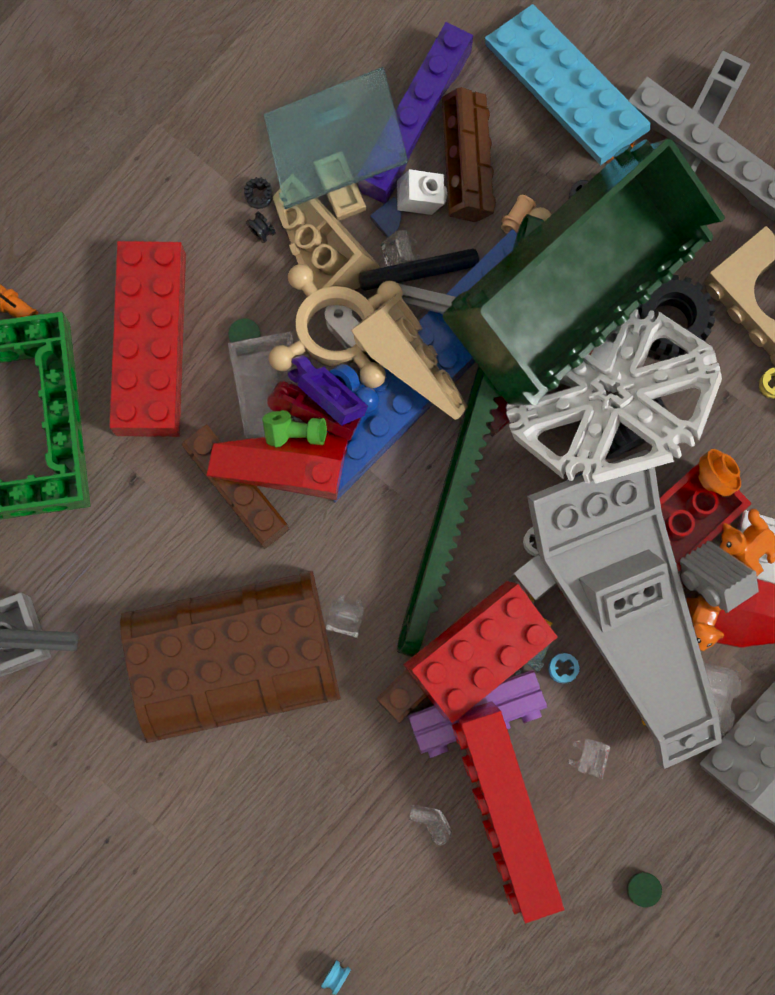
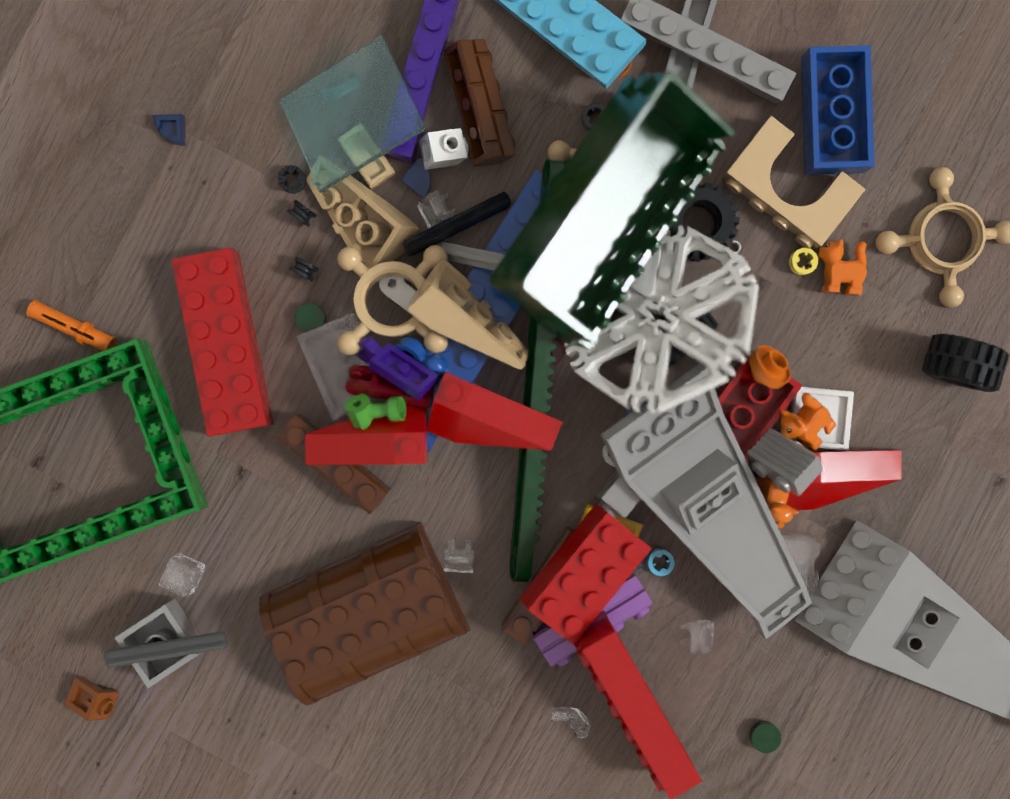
camera: 10 degrees left, 10 degrees up
(45, 570) = (181, 575): none -> clear brick
(148, 119) = (171, 127): none -> dark blue tile
(250, 282) = (304, 268): none -> black bush
(404, 460) = (481, 417): none -> red wedge
(523, 206) = (538, 151): light nougat pin -> none

